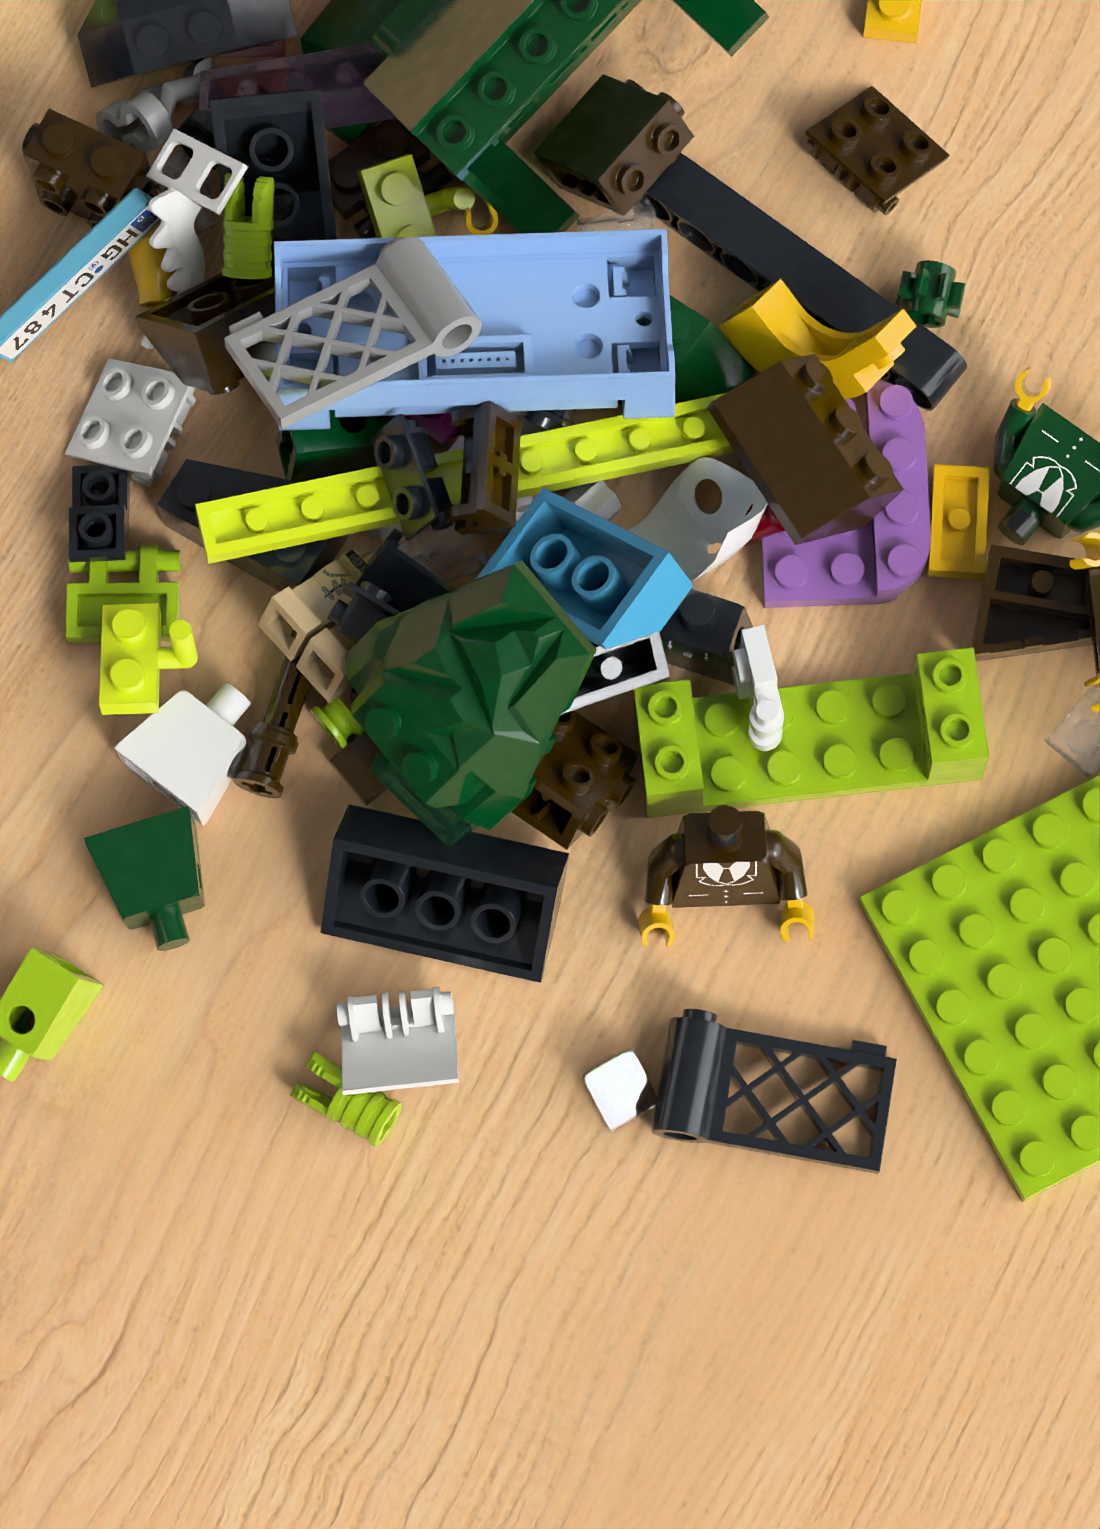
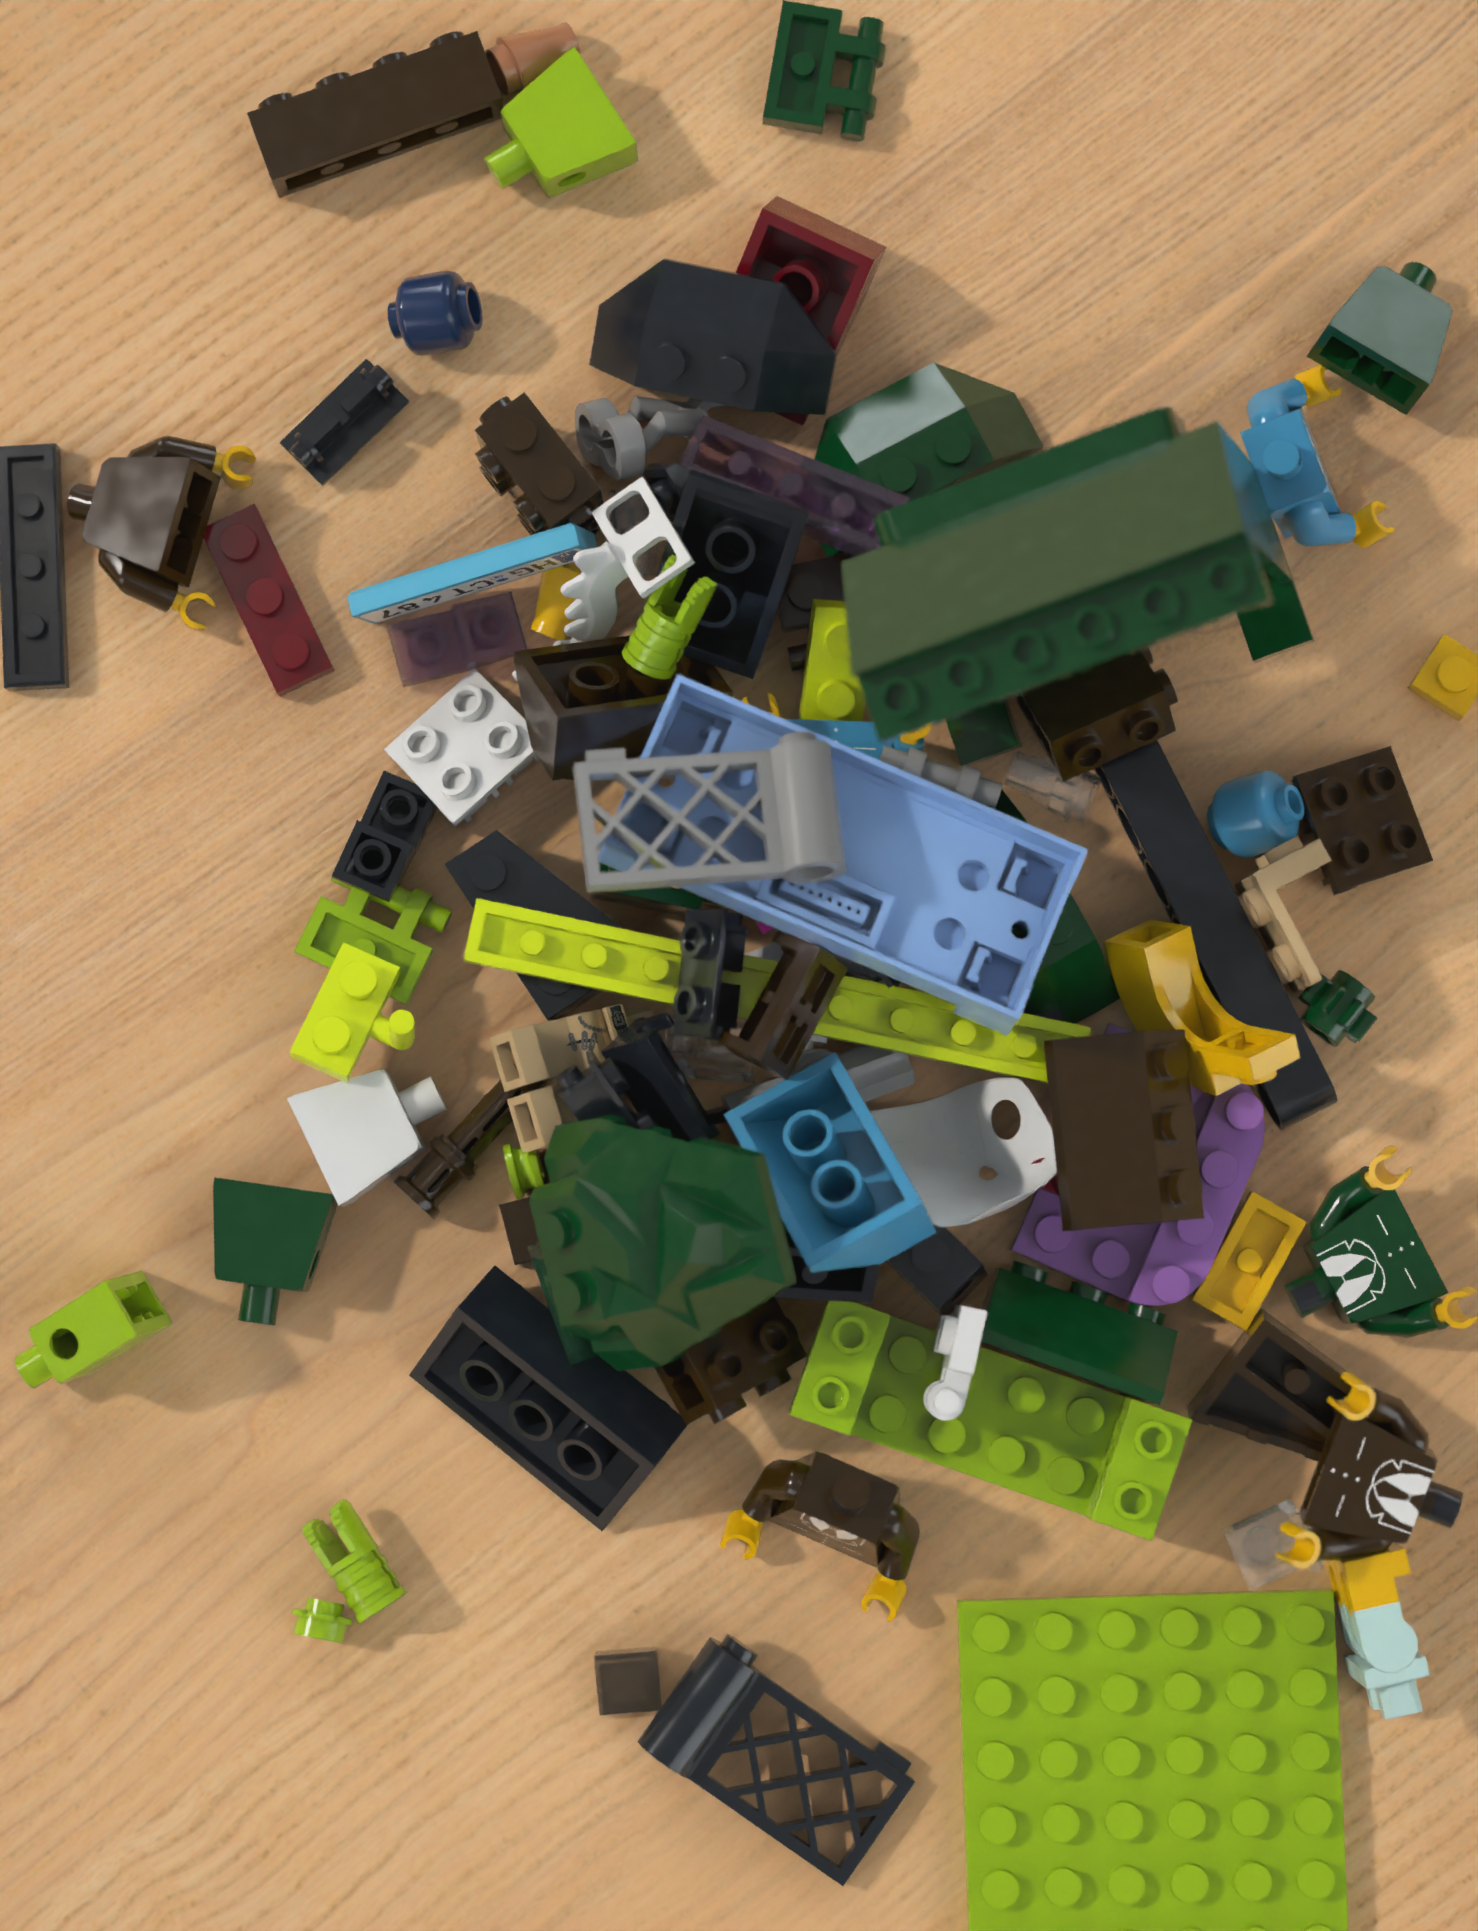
camera: 20 degrees right, 10 degrees up
(83, 344) = (457, 639): none -> slope
(342, 1161) = (321, 1620): none -> lime plate
(398, 1043) = (428, 1537): white hinge -> none
(790, 176) = (1255, 814): none -> dark azure head
(833, 234) = (1268, 914): none -> tan bracket
(849, 637) = (1079, 1332): none -> dark green slope

